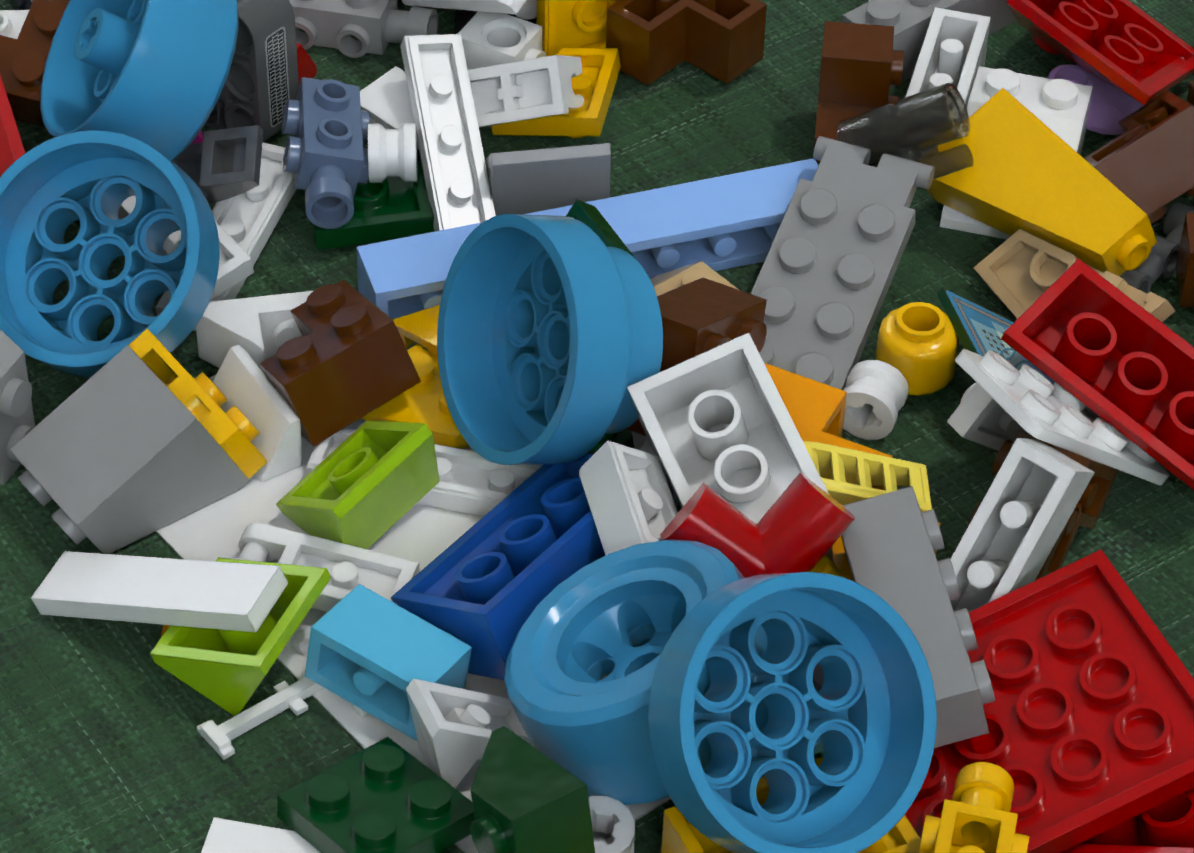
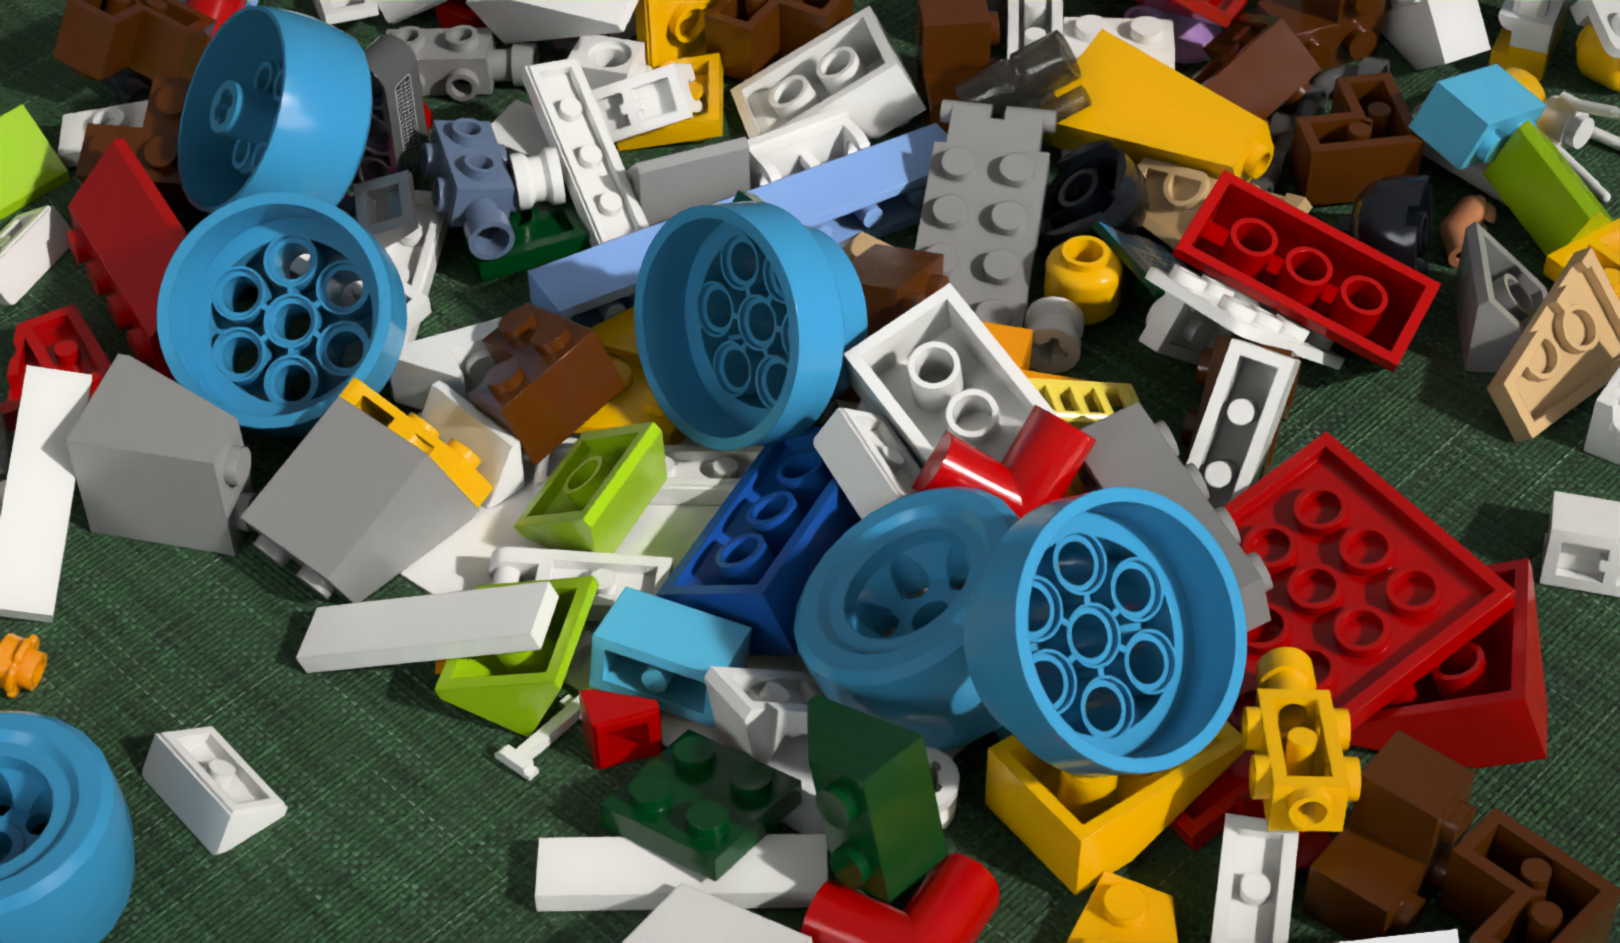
camera: 10 degrees left, 0 degrees up
(322, 723) = (619, 727): none -> red slope
(672, 160) = (803, 146): none -> white hinge
(721, 106) = (844, 66): none -> white slope
(955, 254) = (1094, 186): none -> black cylinder

